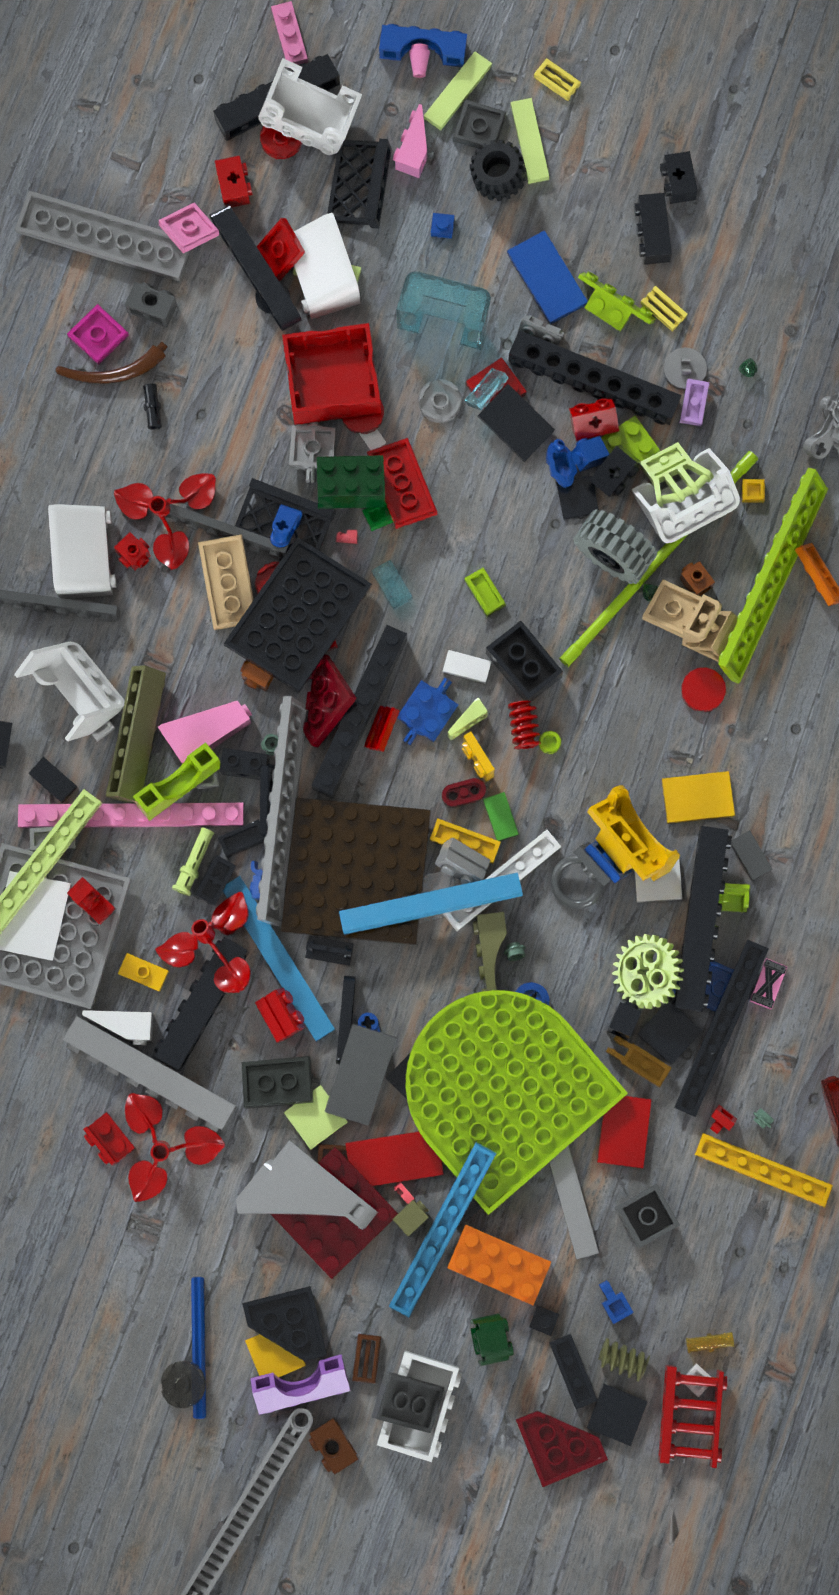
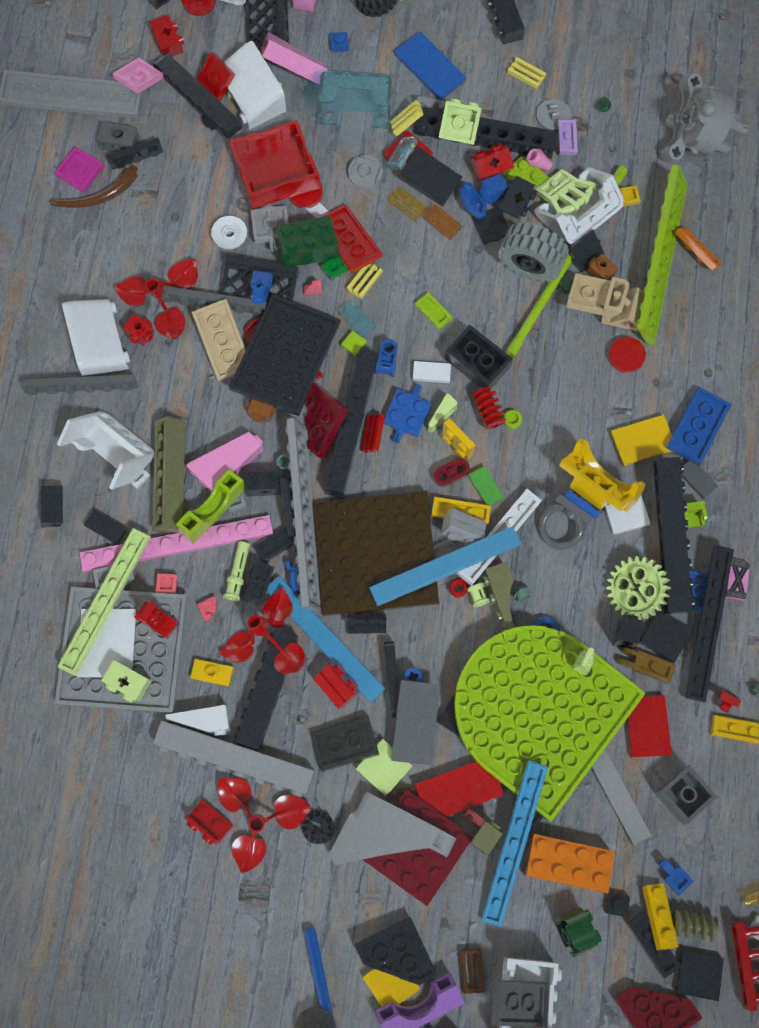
camera: 15 degrees left, 5 degrees down
(57, 969) = (137, 683): none -> yellowish green brick
(110, 860) = (166, 583): none -> coral plate
(152, 406) = (134, 216): black pin -> none
(152, 897) = (208, 608): none -> coral tile
(168, 328) = (135, 153): none -> black plate
(239, 1170) = (328, 827): none -> black gear
(261, 439) = (229, 225): none -> white dish
(379, 242) = (292, 58): none -> bright pink slope
(382, 614) = (353, 343): none -> lime tile
(416, 645) = (387, 361): none -> blue piece
(424, 525) = (373, 268): none -> light yellow tile
(442, 937) = (458, 582): none -> red plate
(463, 943) = (478, 595): none -> yellowish green bush
(470, 437) = (422, 208): none -> clear yellow tile
(502, 343) = (406, 117): none -> light yellow tile
(519, 482) = (442, 221): none -> clear orange tile
(564, 363) = (460, 121): none -> yellowish green plate
(564, 1045) = (584, 661): none -> yellowish green slope
(586, 1342) = (660, 917): none -> yellow plate
(610, 305) = (485, 78): lime bracket -> none
(651, 426) = (539, 159): none -> bright pink cone
(682, 551) = (586, 249): none -> black piece
(767, 793) = (698, 426): none -> blue tile

